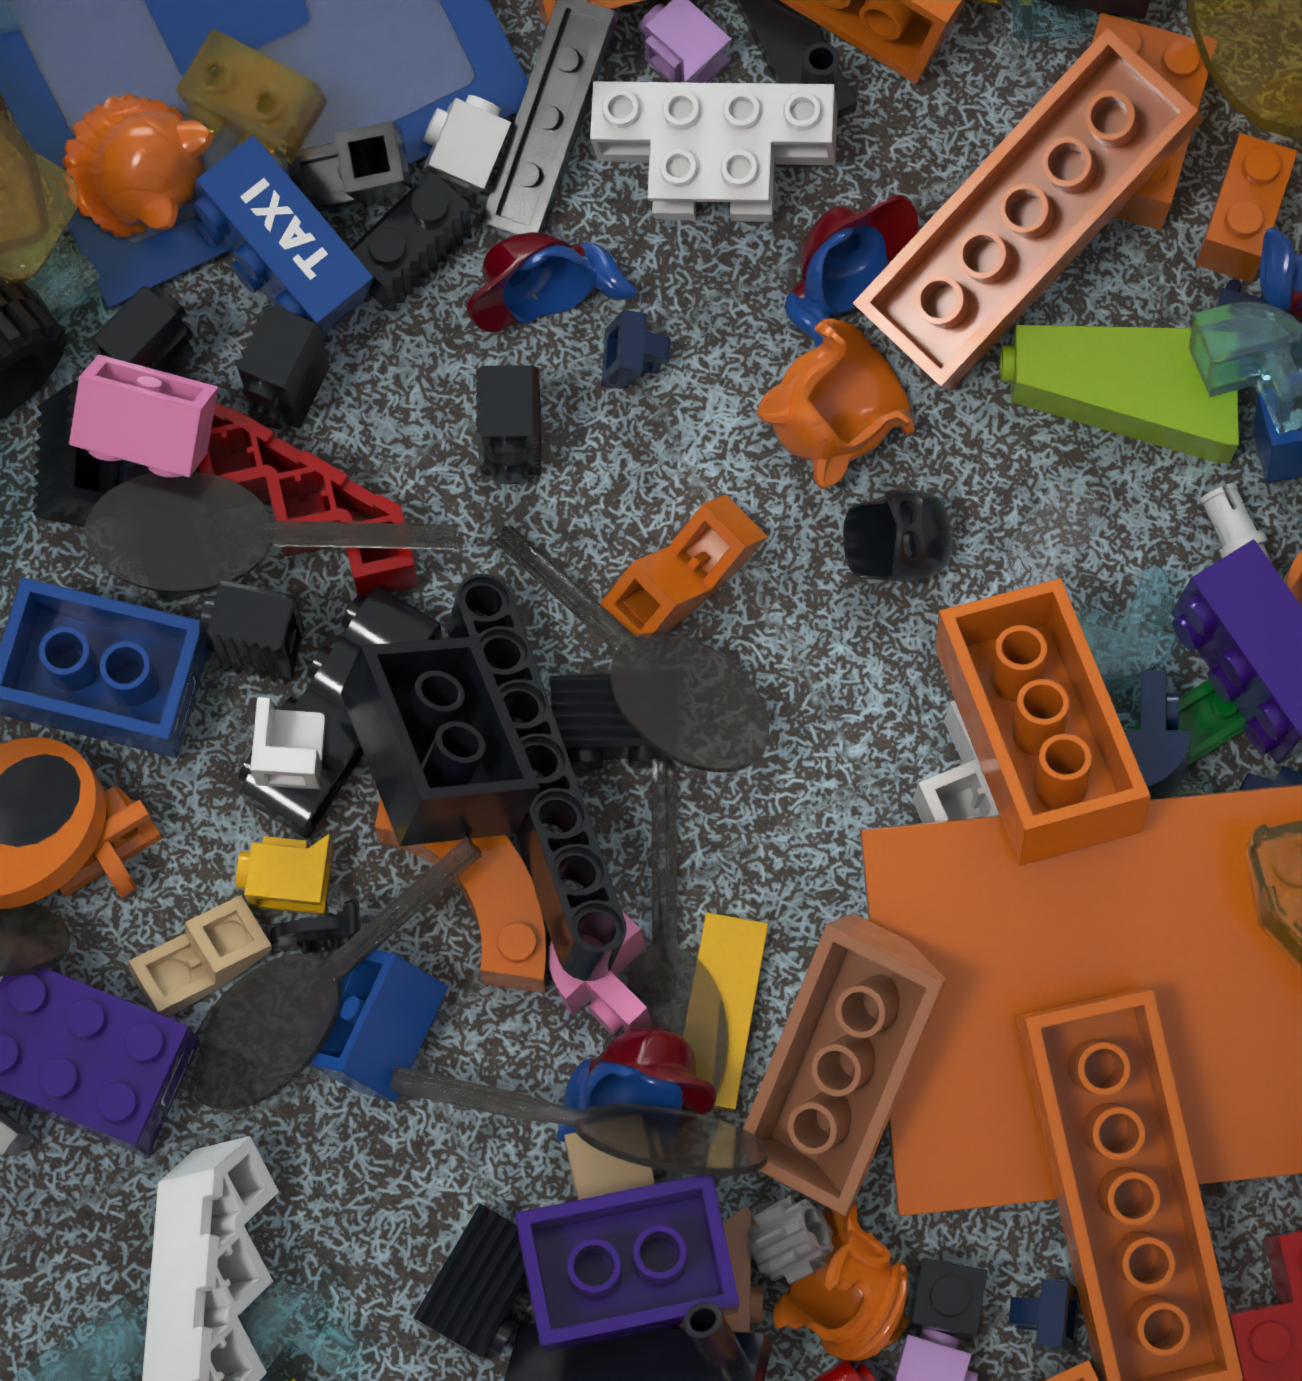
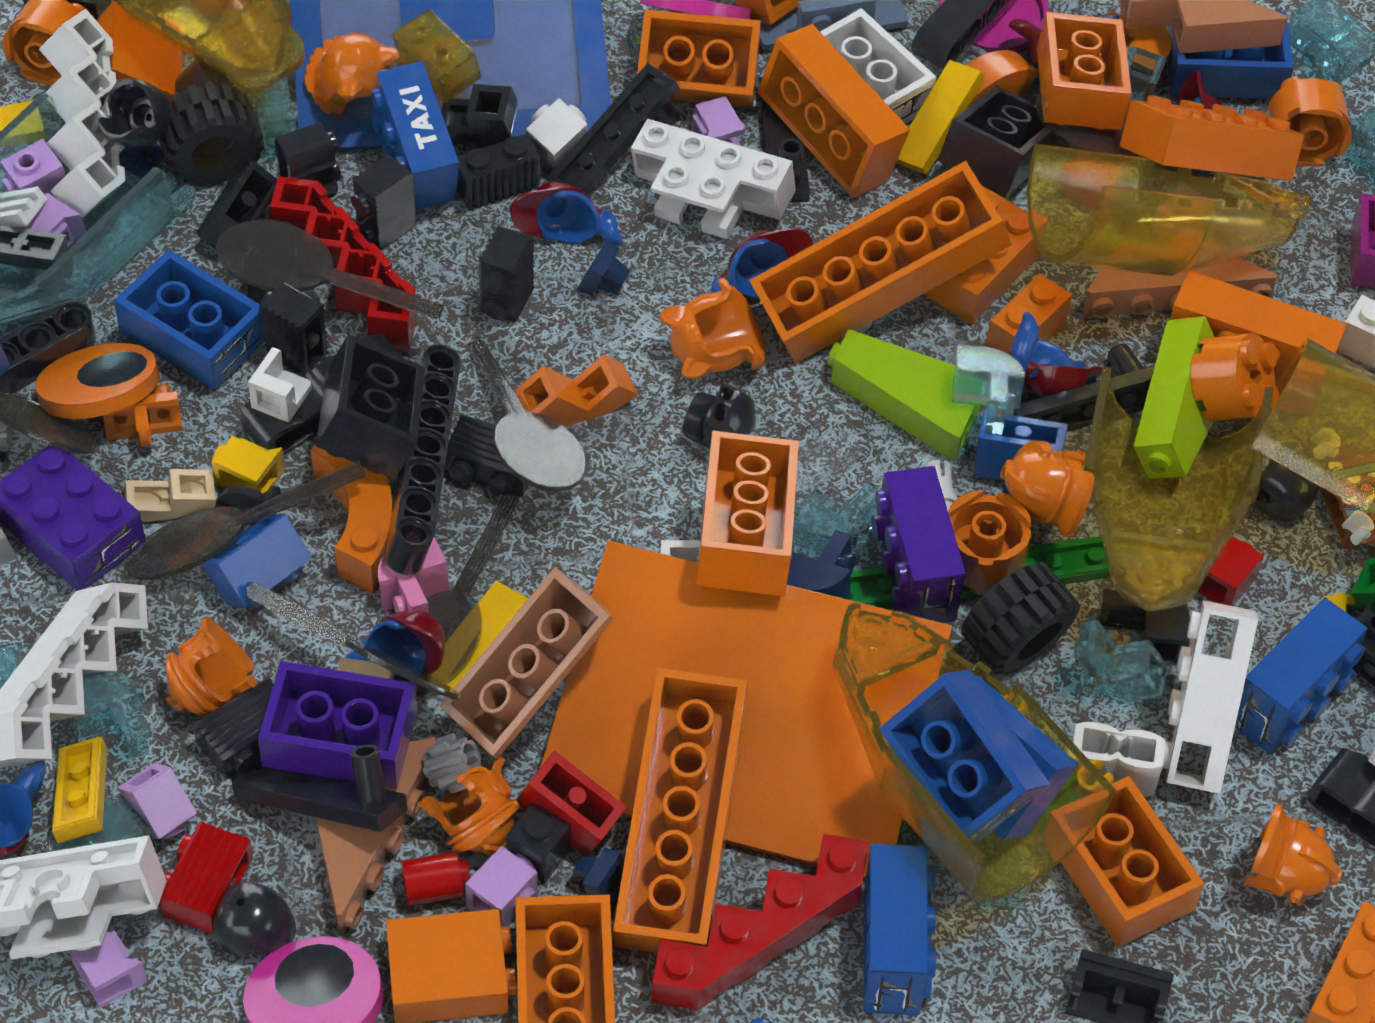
camera: 20 degrees right, 20 degrees down
(143, 416) = (282, 182): bright pink brick -> none
(396, 1224) = (207, 671): none -> orange helmet
(971, 1230) = (575, 799): none -> red brick

